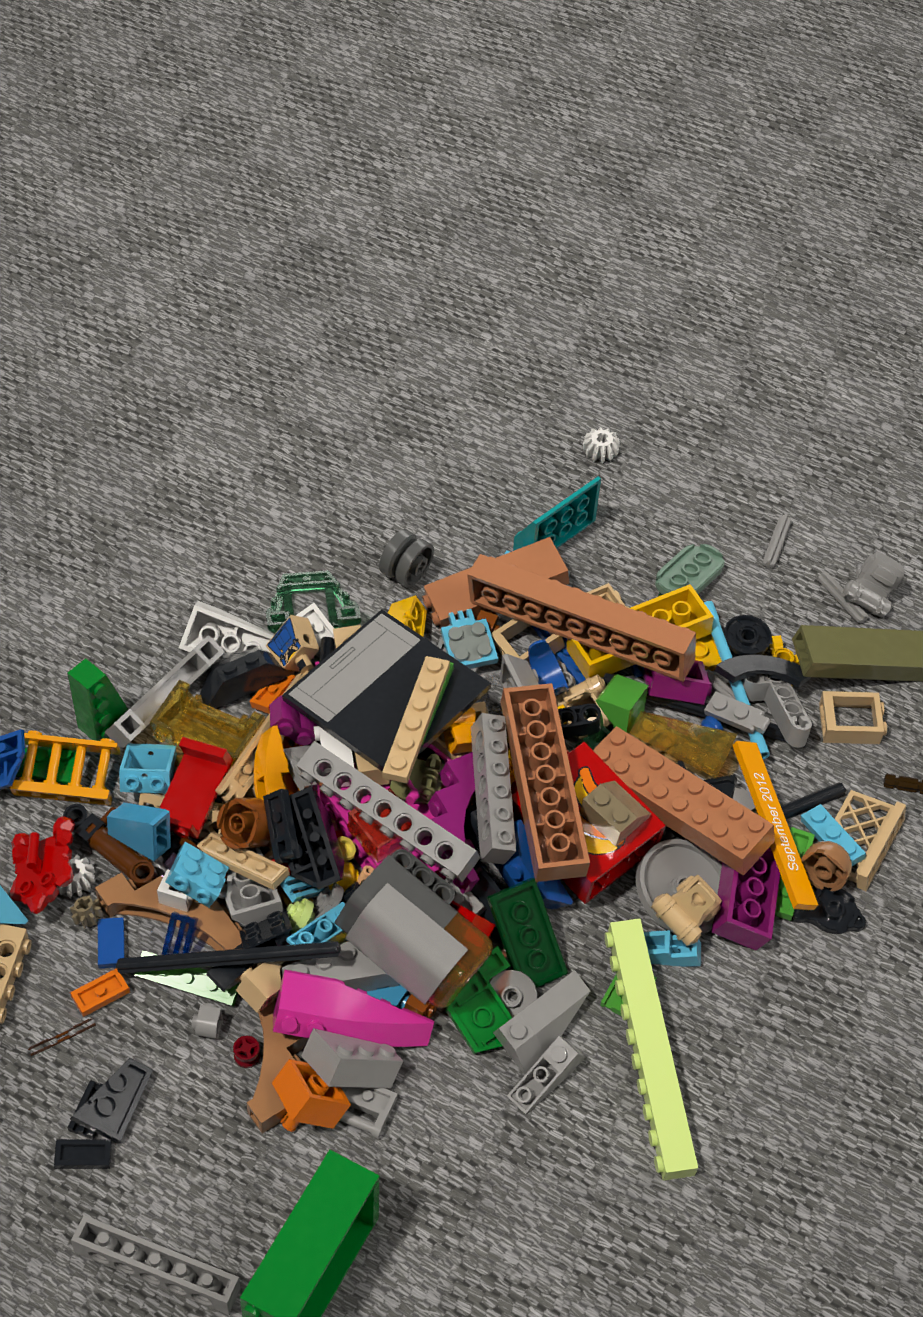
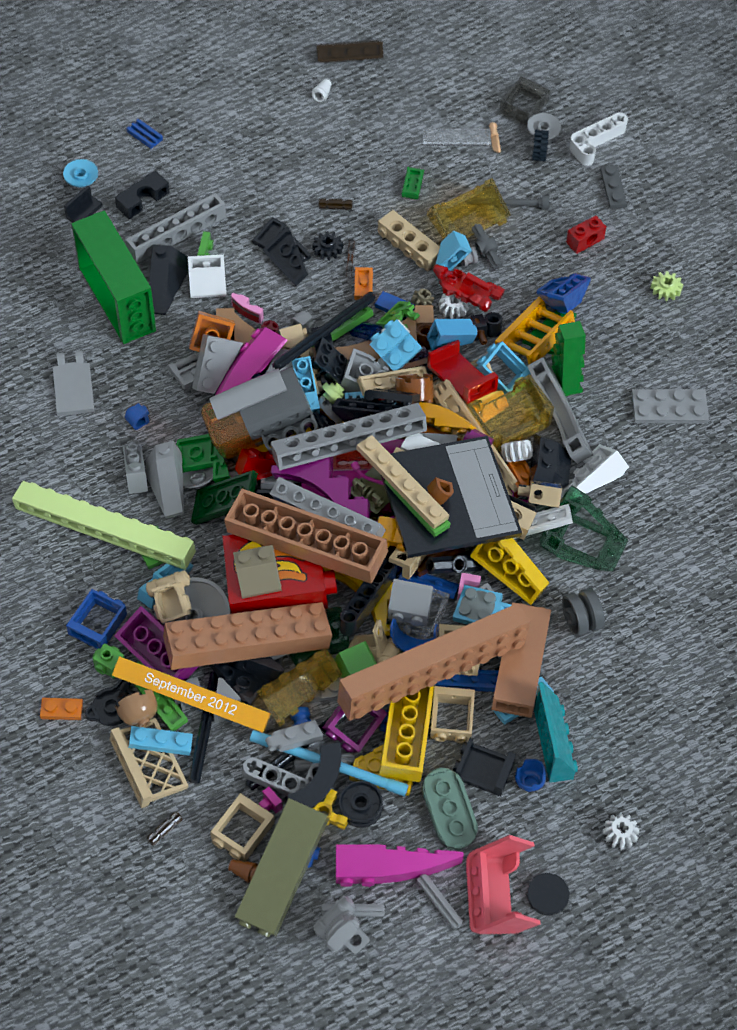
camera: 125 degrees right, 5 degrees up
(57, 1074) = (327, 245): none -> black gear
(80, 612) = (670, 406): none -> light grey plate
(137, 921) = (399, 311): none -> bright green plate
(160, 1213) = (206, 244): none -> bright green plate
(211, 1174) = (207, 276): none -> white slope
(229, 1099) = (252, 312): none -> slope
(240, 1233) = (166, 275): none -> black wedge
(248, 700) = (516, 451): none -> white gear
(397, 684) = (440, 490): none -> dark orange plate
(477, 1118) = (137, 416): none -> blue plate
(484, 1229) = (73, 386): none -> light grey tile
(606, 527) = (531, 775): none -> blue hair
(625, 565) = (484, 767): none -> black panel
(700, 472) = (548, 894): none -> black tile
(755, 500) = (490, 888): none -> coral windscreen
(755, 962) = (87, 635): none -> blue window
(779, 584) = (376, 865): none -> dark pink wedge
(795, 935) = (106, 659): none -> bright green brick
(812, 710) = (270, 801): none -> dark pink tile
(876, 954) = (61, 708): none -> orange plate
(886, 691) = (243, 869): none -> dark orange cone

